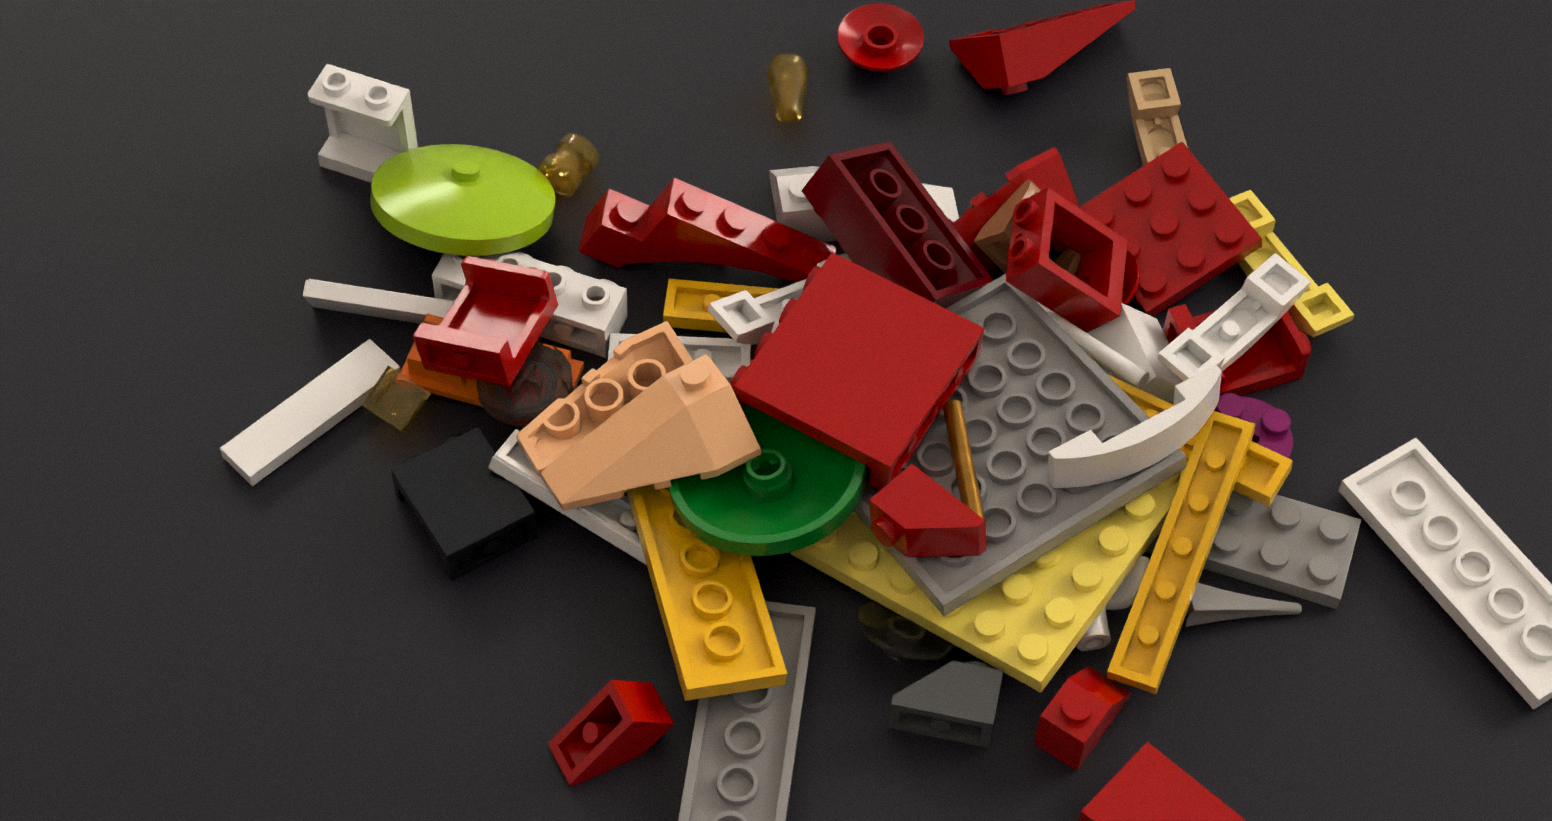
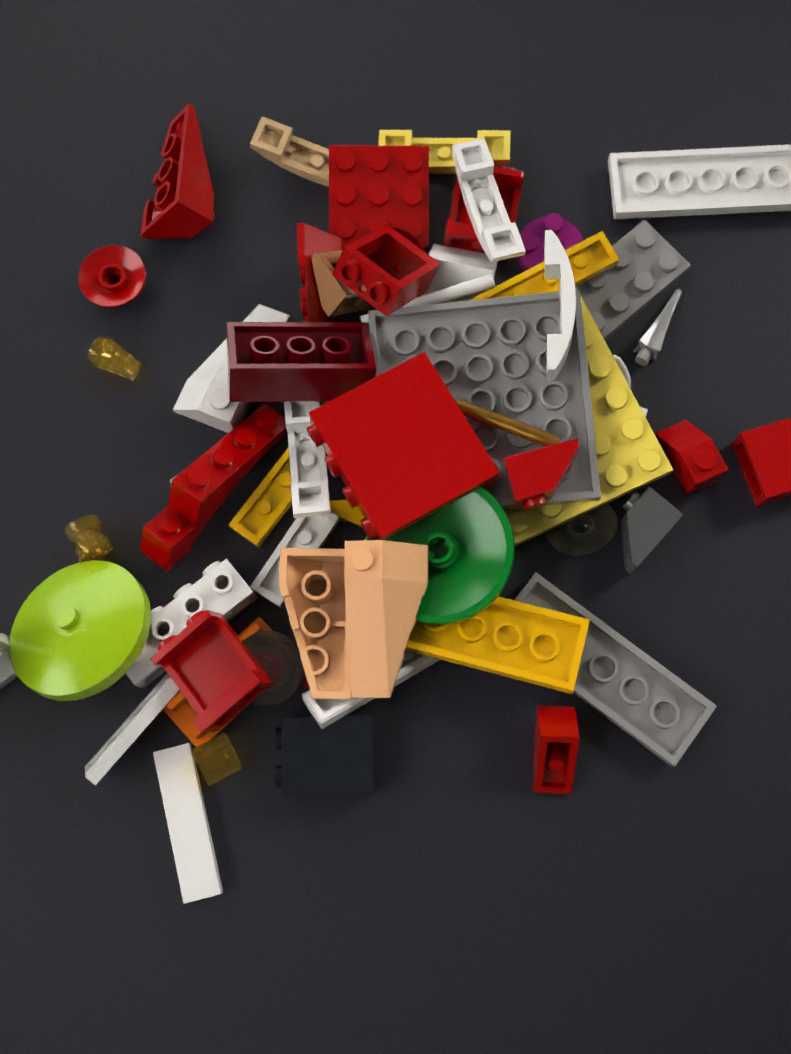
camera: 55 degrees left, 20 degrees up
(1181, 552) = (630, 336): yellow plate -> none

